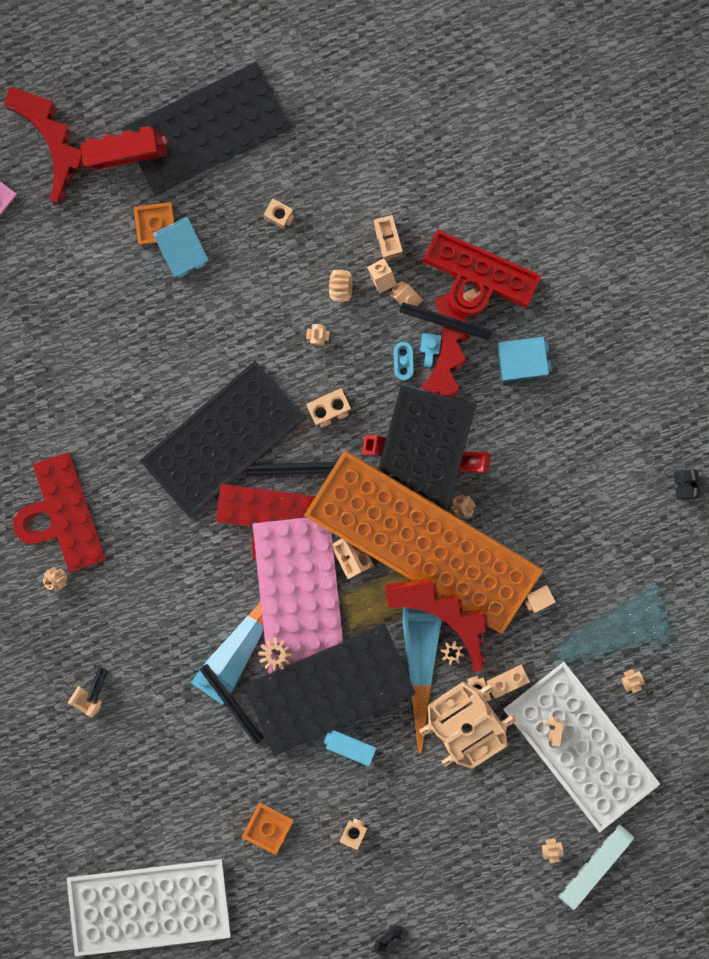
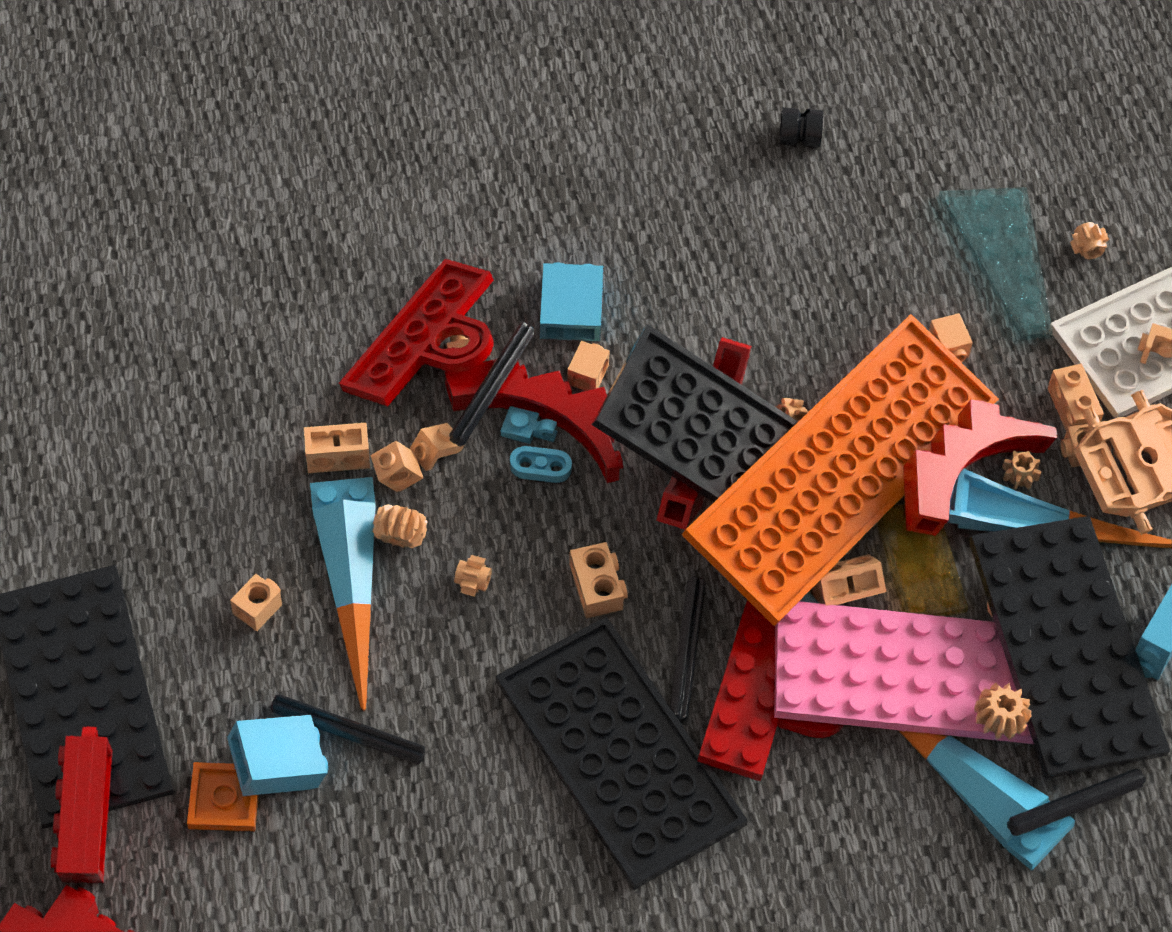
camera: 80 degrees left, 25 degrees down
(209, 284) = (350, 729): none -> black axle
(345, 252) = (344, 527): none -> medium azure plate
(477, 378) = (588, 366): none -> light nougat brick

